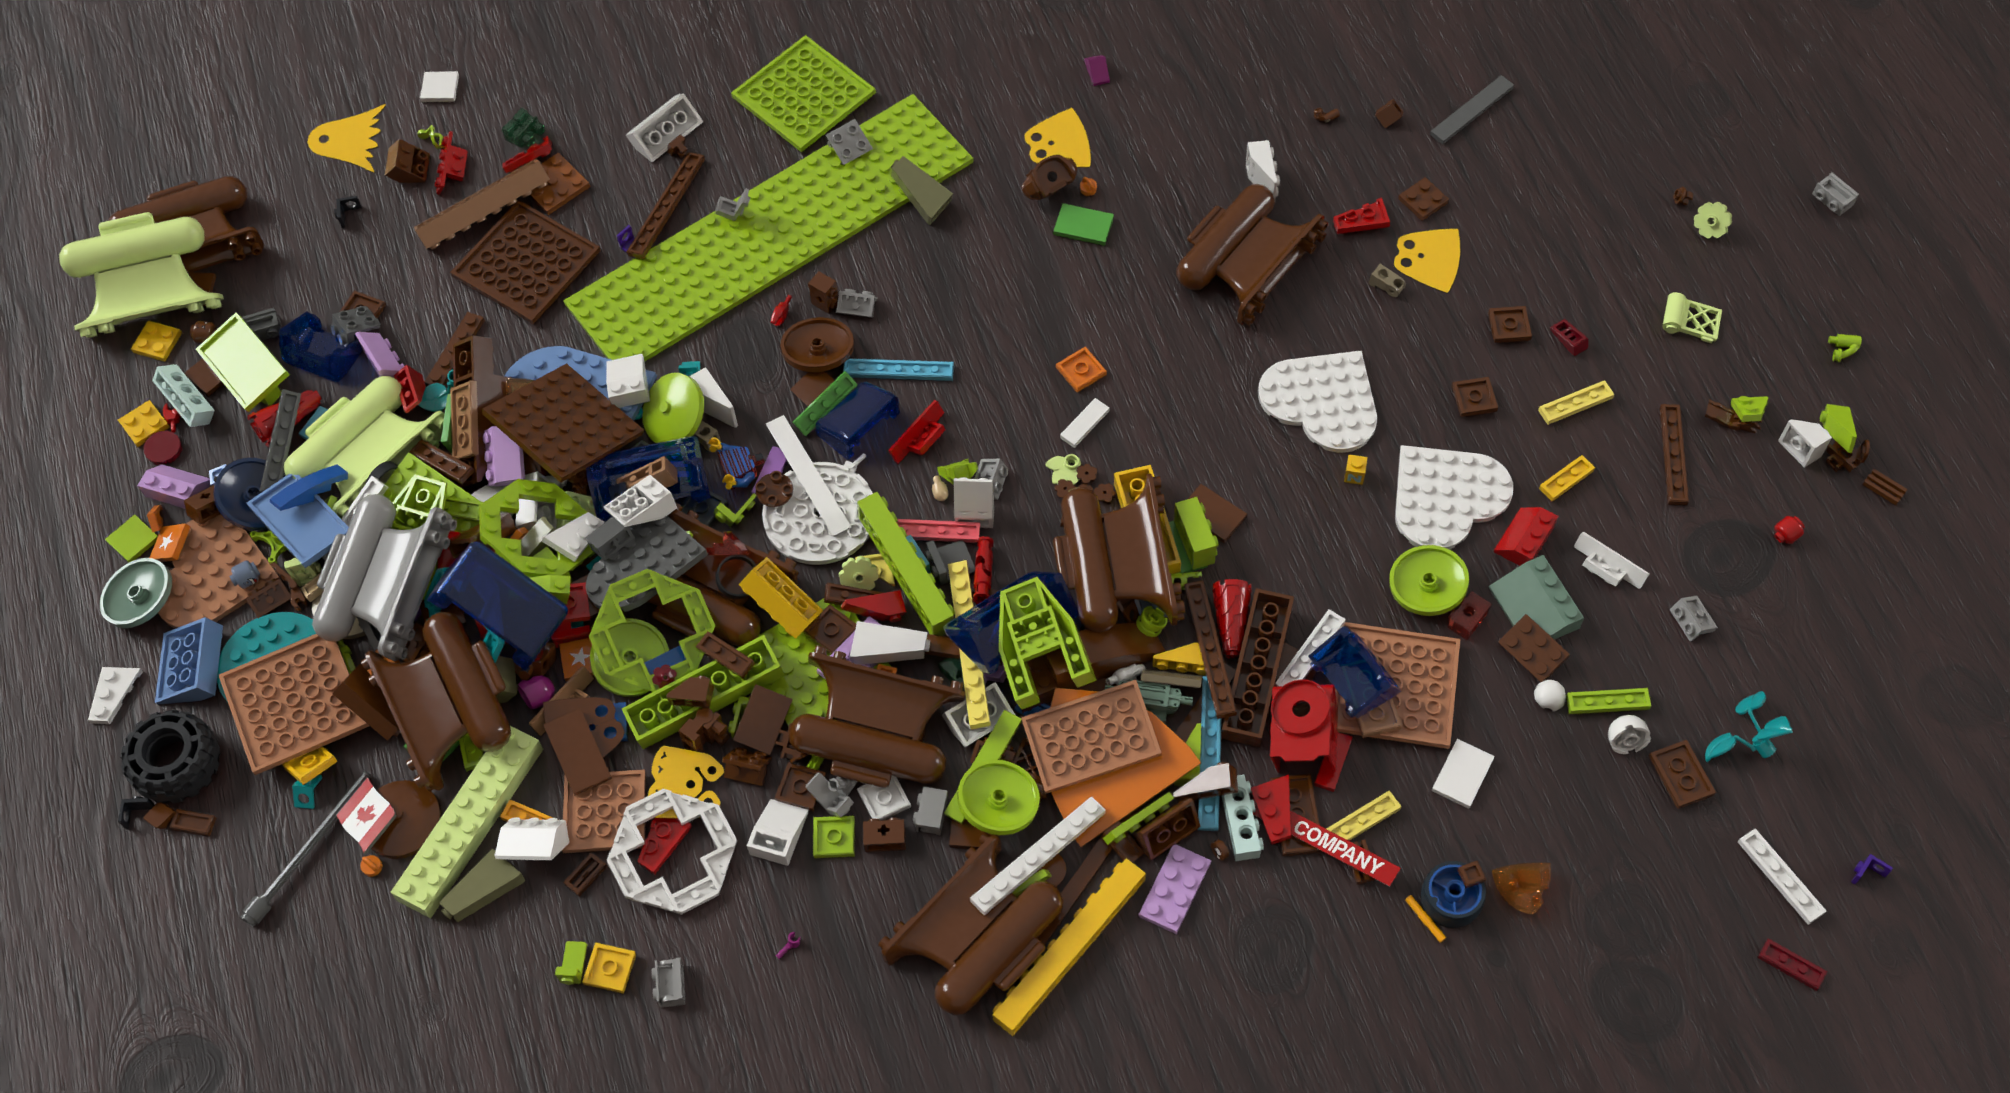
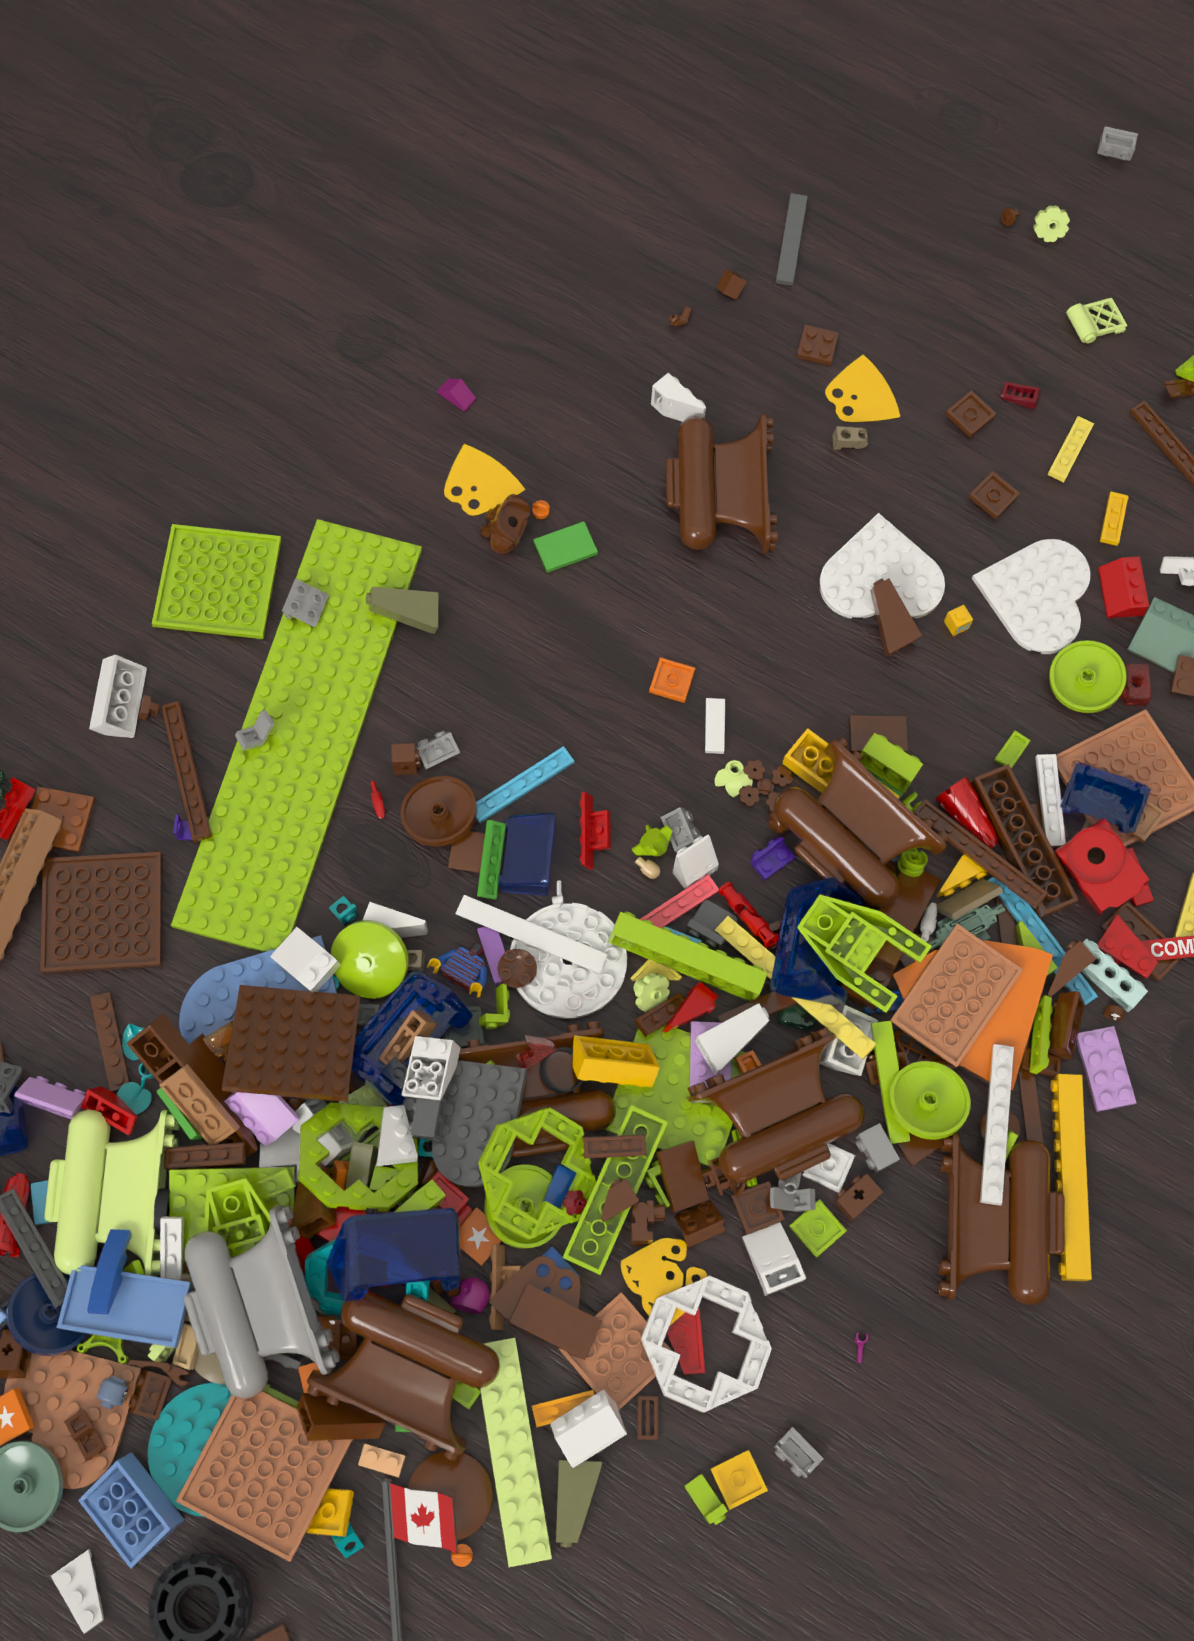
camera: 45 degrees left, 10 degrees up
(204, 590) = (85, 1435): none -> reddish brown slope
(377, 759) = (381, 1460): none -> light nougat plate
(830, 629) = (672, 1055): reddish brown tile -> none
(1039, 545) = (772, 858): none -> dark purple bracket
(1297, 435) = (893, 618): none -> reddish brown slope
(1315, 597) = (1012, 749): none -> lime tile
(1365, 218) = (787, 393): red wing -> none

